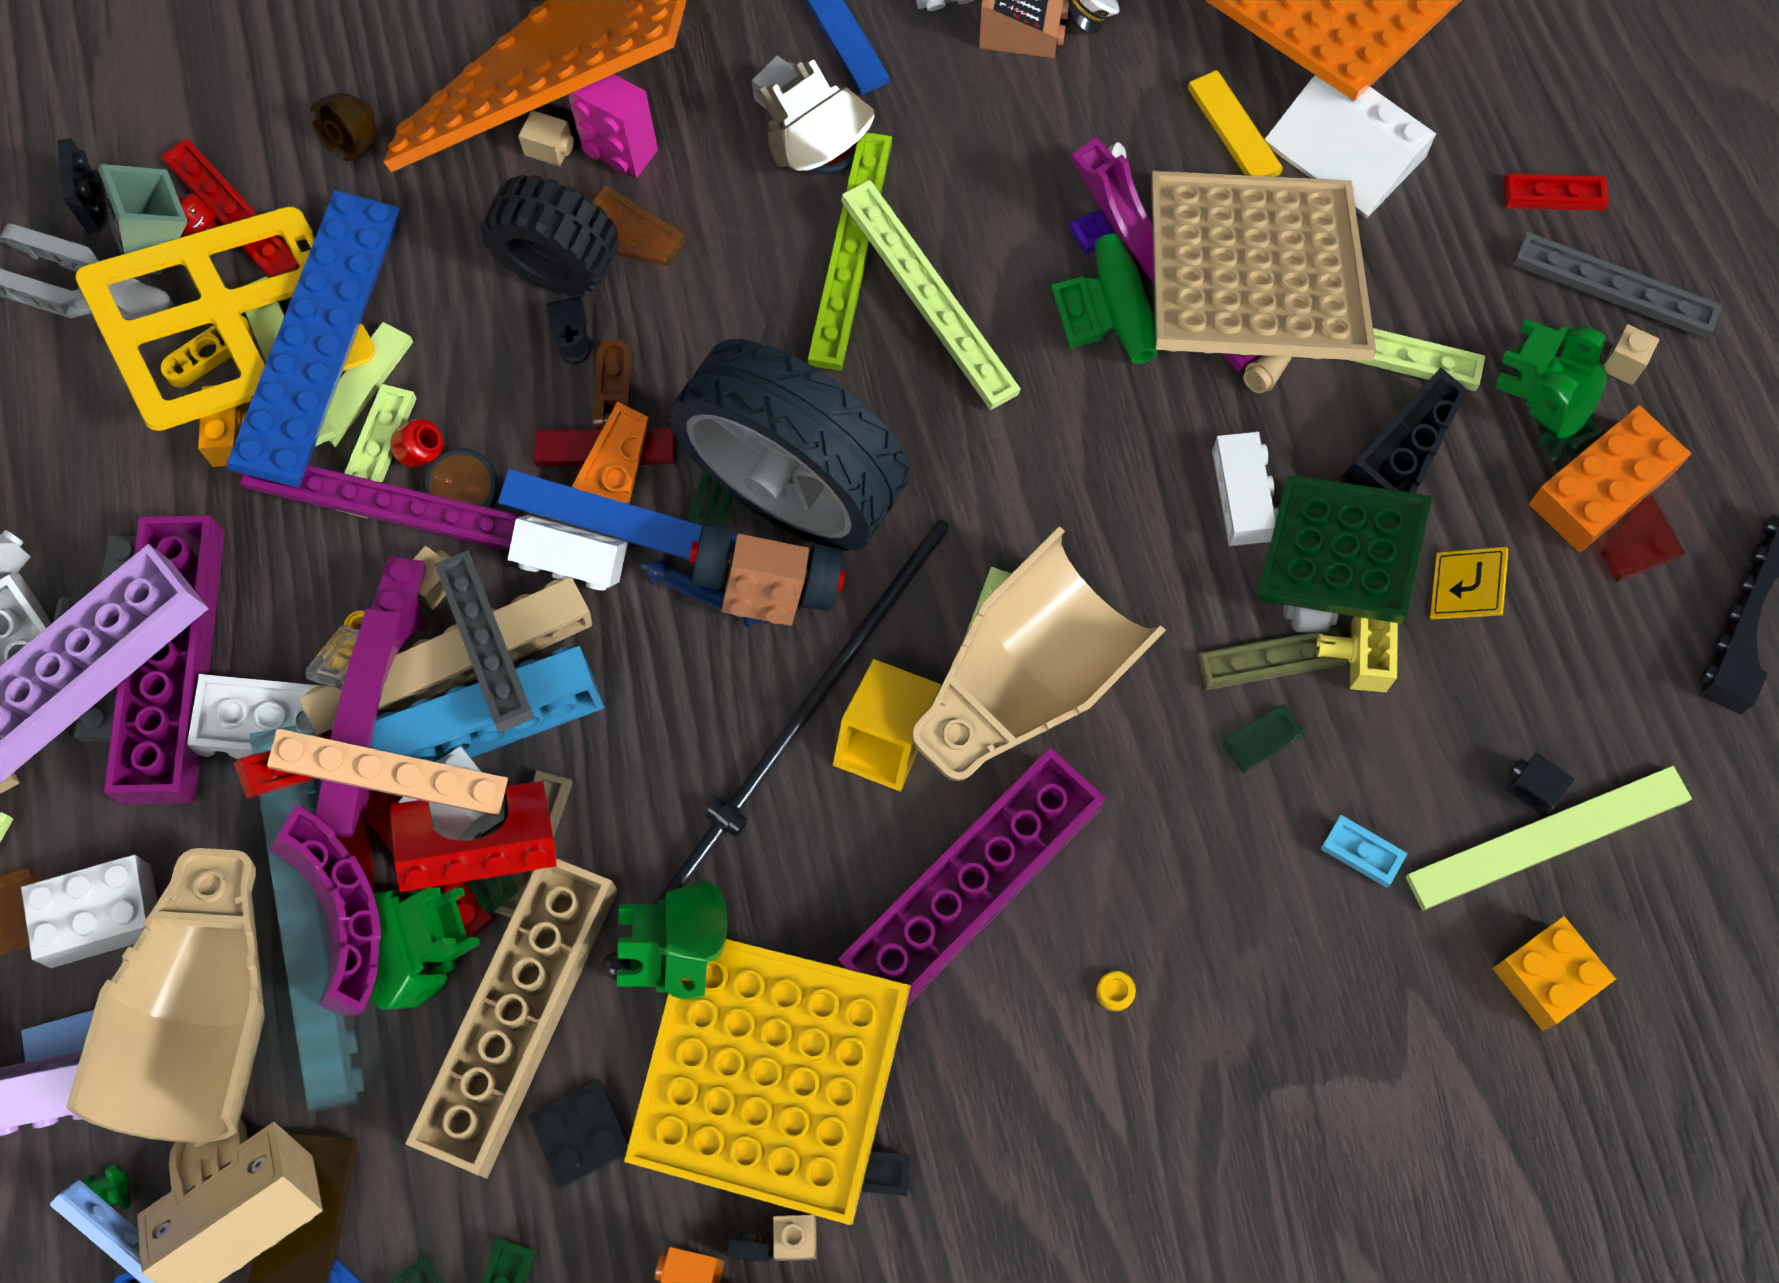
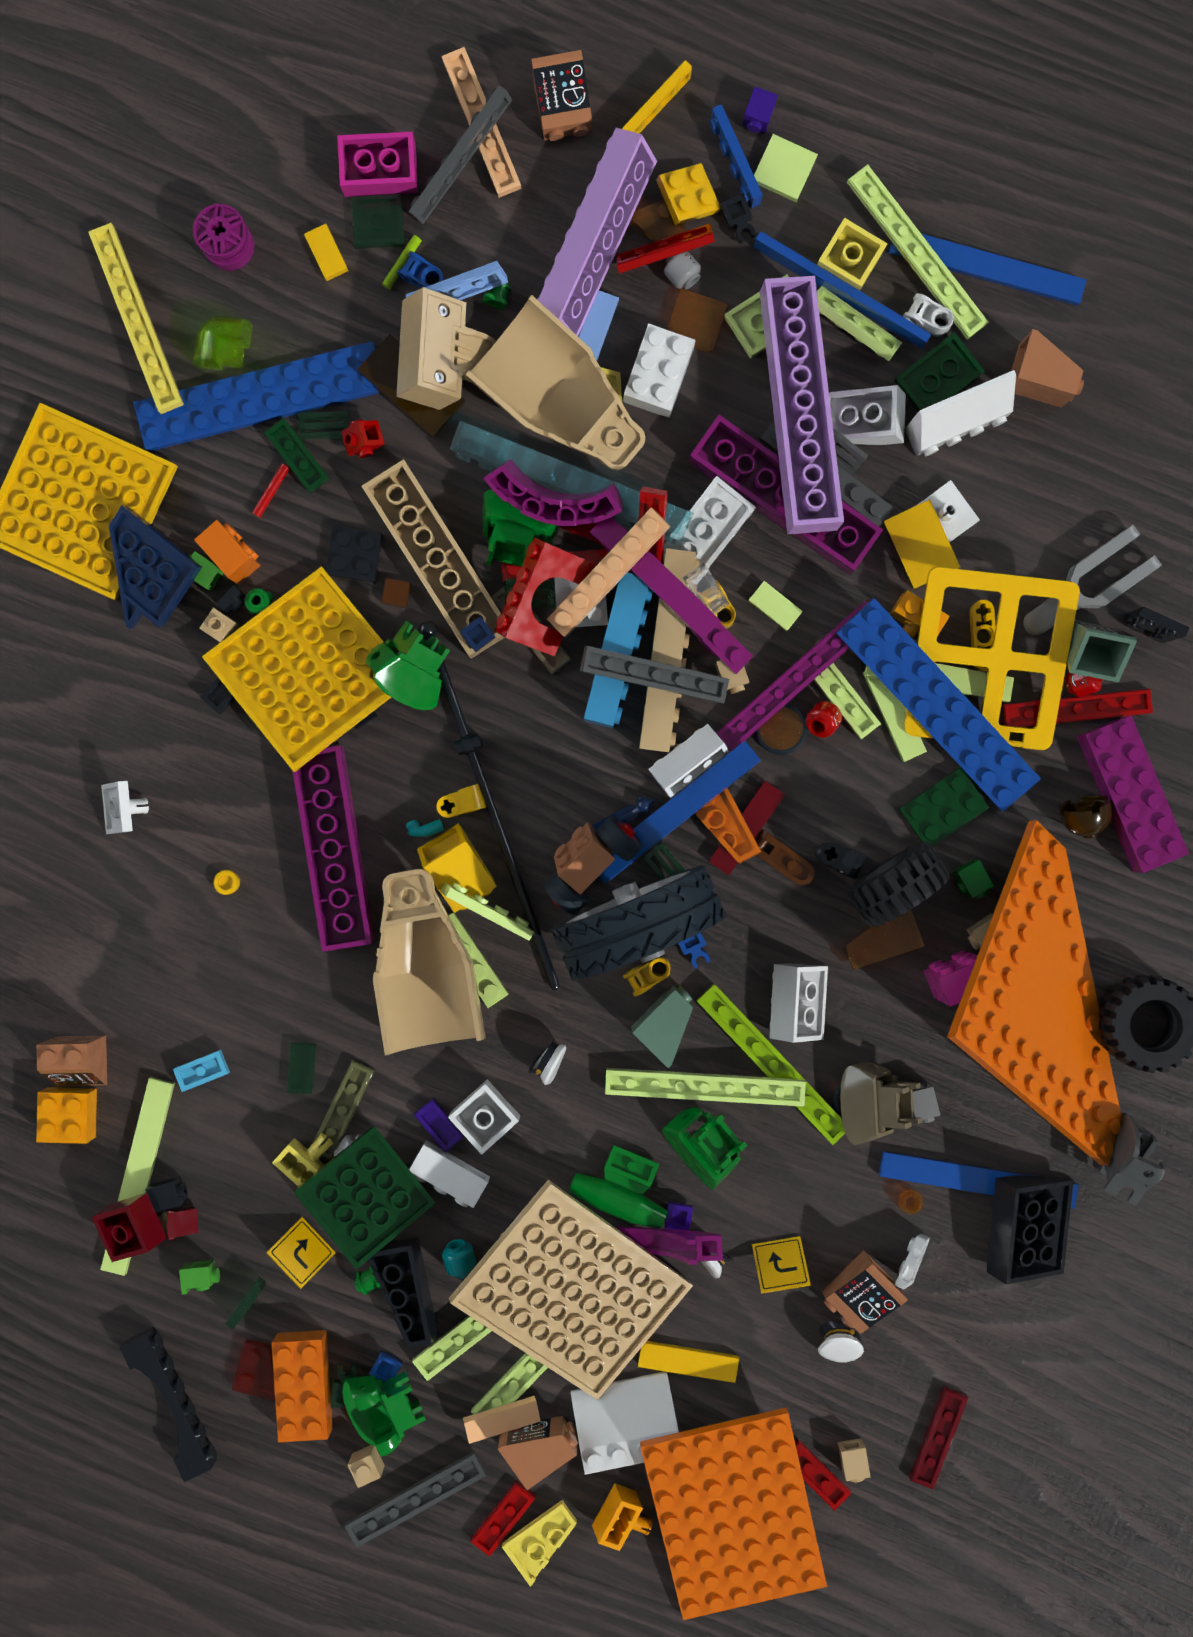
camera: 125 degrees right, 20 degrees up
(85, 479) = (952, 510): none -> white tile
(134, 476) = (921, 542): none -> yellow tile
(273, 116) = (1136, 797): none -> magenta brick
(315, 587) = (775, 606): none -> yellowish green tile
(413, 1228) = (362, 438): none -> red brick
(437, 268) = (943, 807): none -> dark green plate
(489, 181) = (973, 880): none -> green brick
(574, 882) = (477, 634): none -> dark blue plate
(595, 1042) = (396, 593): none -> reddish brown tile
(740, 1216) = (252, 595): none -> green brick
(764, 268) = (798, 1002): none -> white slope
(800, 771) = (465, 801): none -> yellow piece
(871, 793) = (426, 830): none -> teal arm
(891, 372) = (665, 1024): none -> sand green slope
(895, 28) = (913, 1208): none -> clear orange plate
(909, 656) = (479, 905): none -> yellowish green plate
(996, 237) = (710, 1151): none -> green piece
(1032, 468) = (548, 1062): none -> white piece
(1058, 103) = (781, 1264): none -> yellow piece
(1127, 1193) = (119, 807): none -> white tile
(1149, 492) = (484, 1116): none -> white brick
(1200, 541) = (439, 1125): none -> dark purple tile
(1327, 414) = (458, 1258): none -> teal head
(1421, 276) = (512, 1384): none -> yellowish green tile
(1437, 488) = (366, 1281): none -> green brick
(1449, 195) = (539, 1448): none -> nougat slope
(1450, 80) = (620, 1516): none -> light orange brick
(1456, 256) = (501, 1419): none -> light nougat tile
(1477, 1013) = (73, 1060): none -> nougat slope
(1510, 412) = (385, 1366): none -> blue tile
(1548, 143) = (538, 1540): none -> light yellow wing
(1559, 746) = (179, 1222): none -> dark red tile
(1578, 605) = (246, 1303): none -> clear green tile
(1595, 679) = (198, 1275): none -> bright green brick
(1613, 787) = (129, 1227): none -> dark red brick

